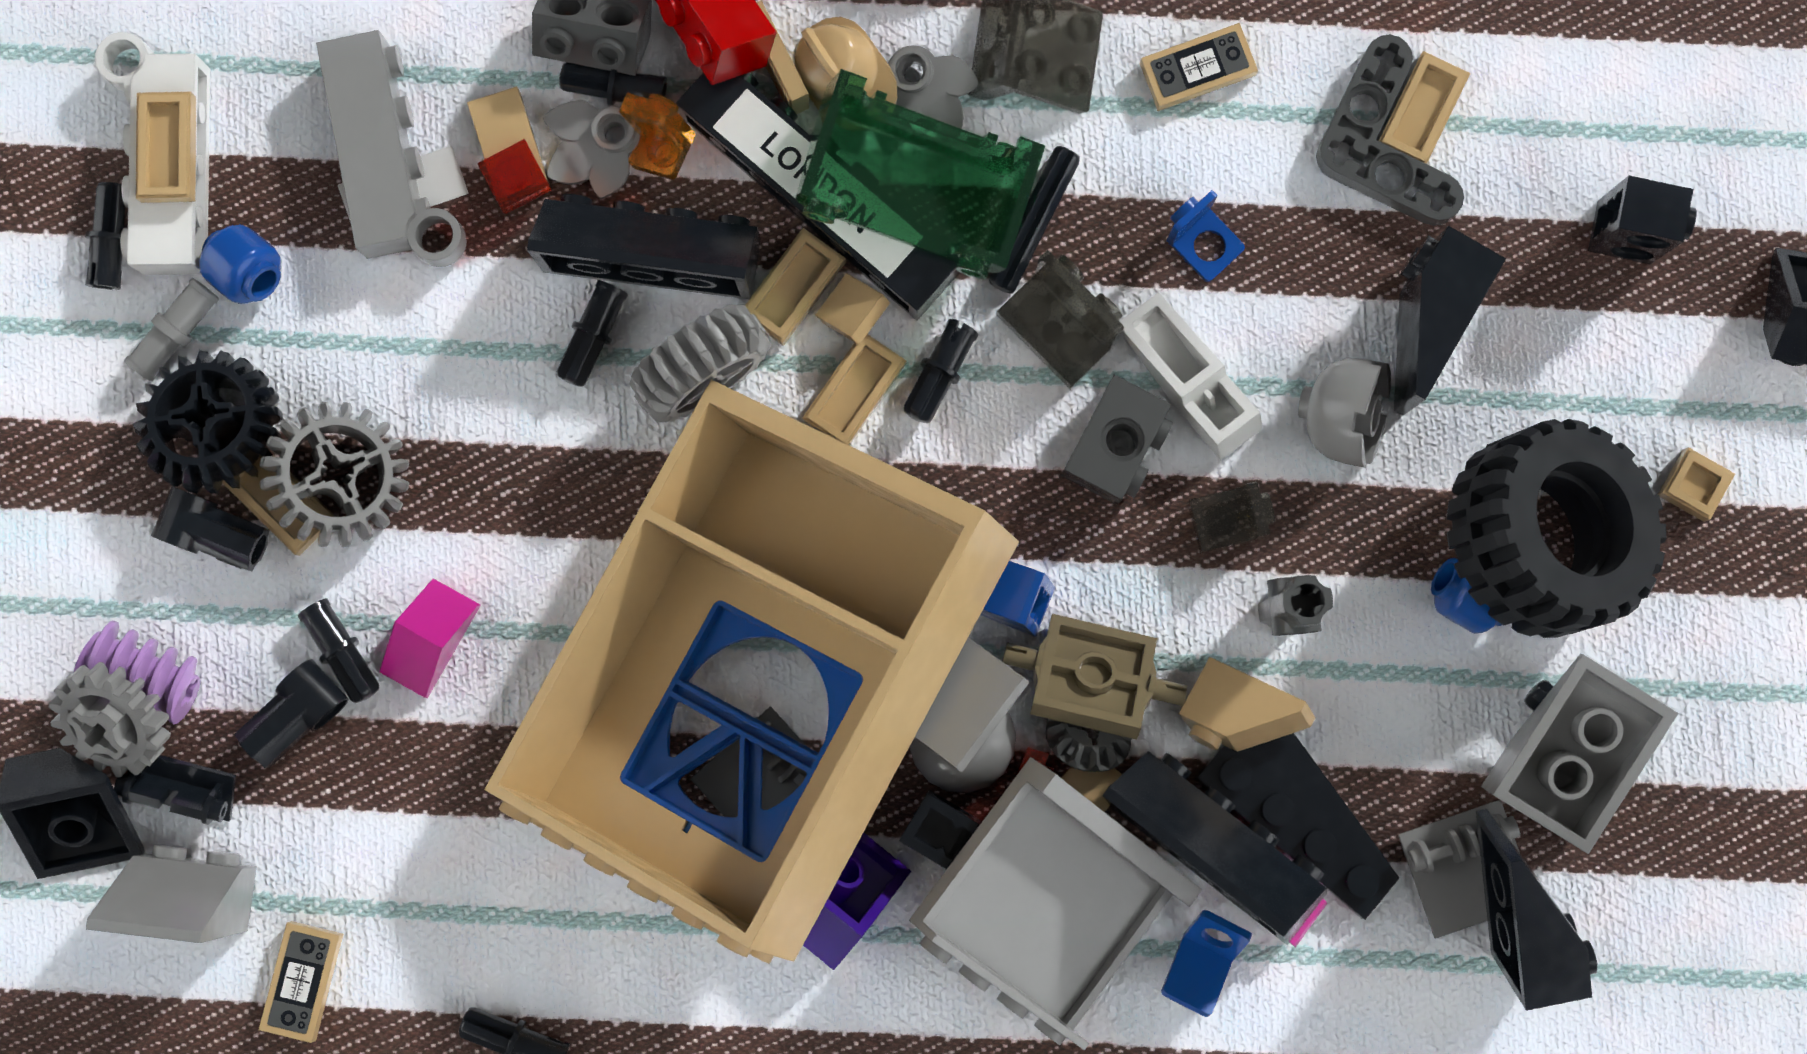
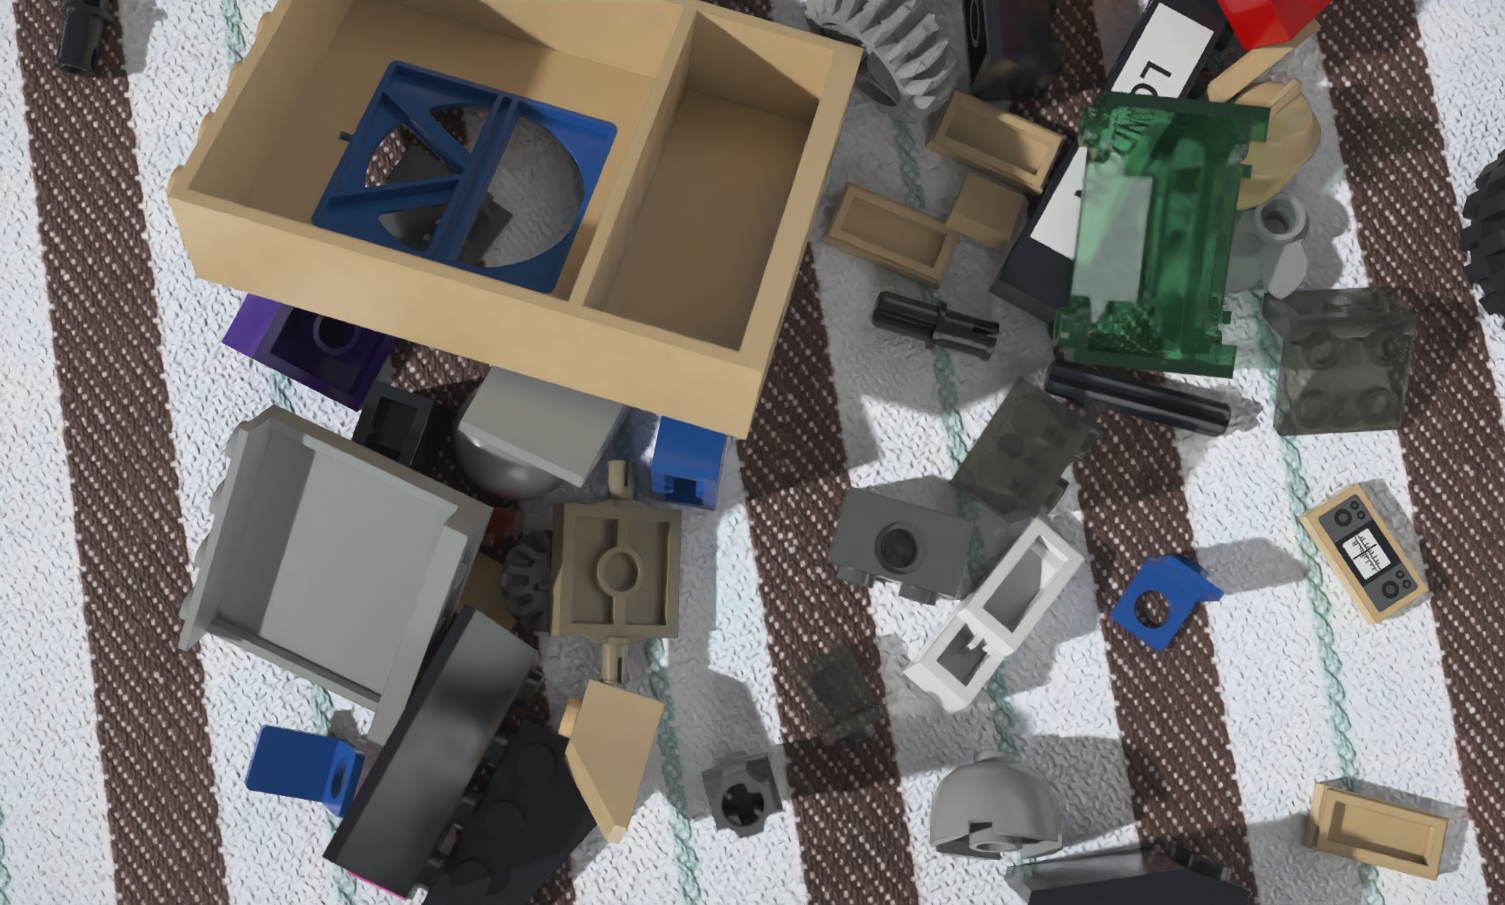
camera: 70 degrees right, 0 degrees up
(1362, 140) = (1327, 764): dark grey beam -> none

